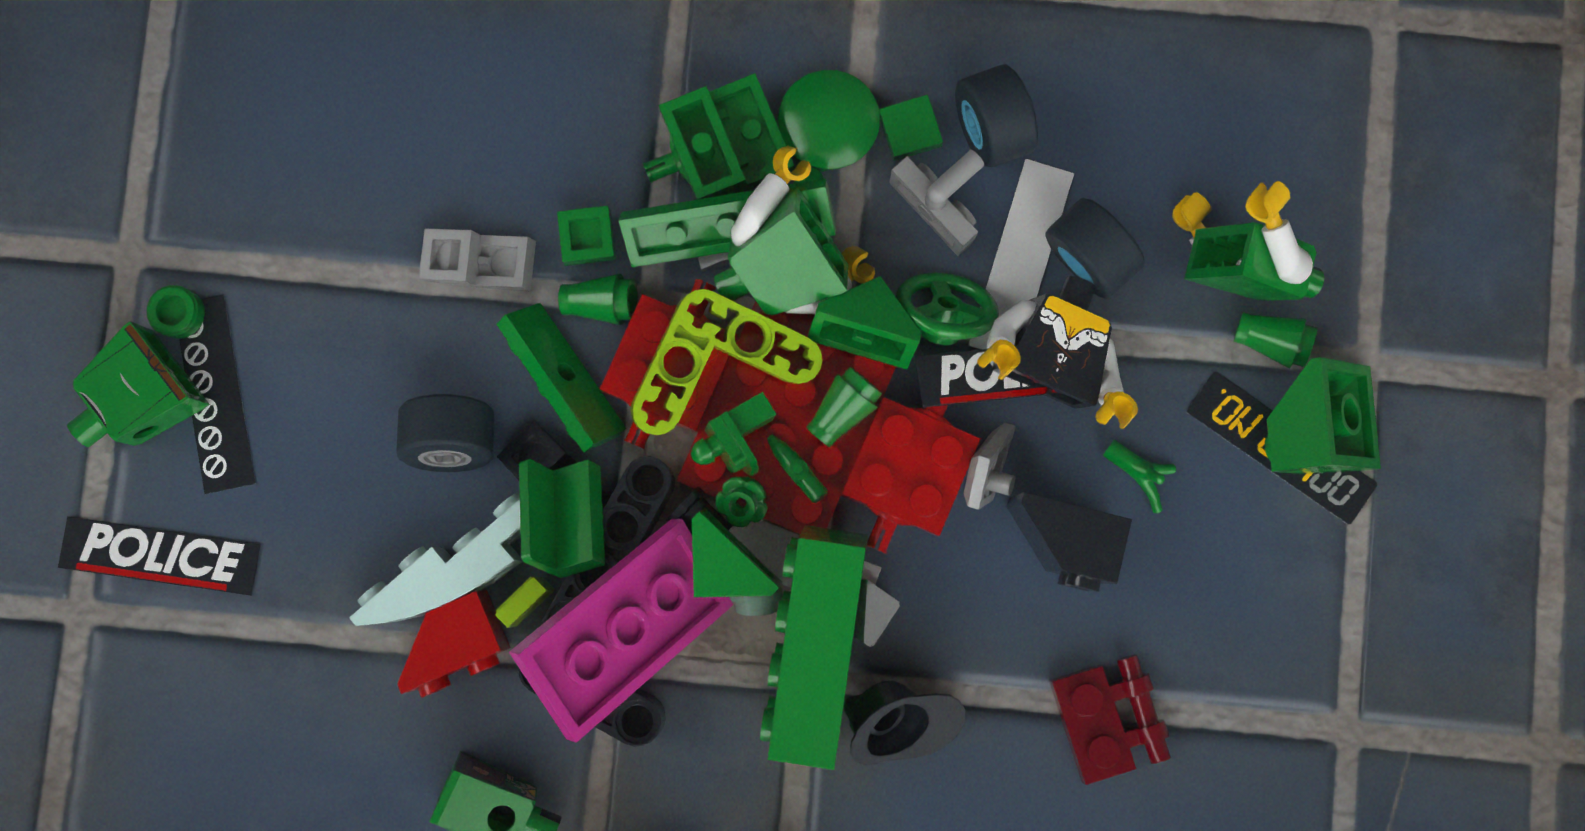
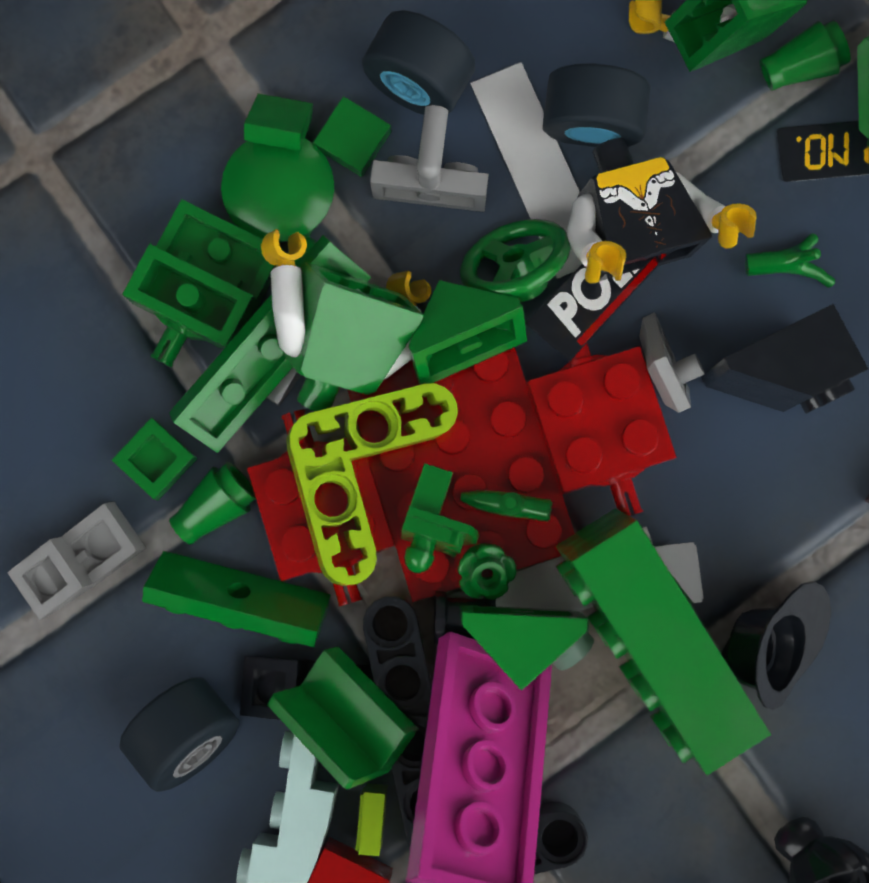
camera: 40 degrees left, 0 degrees up
(844, 405) = (503, 417): green cone -> none
(867, 74) = (278, 122): none -> green tile

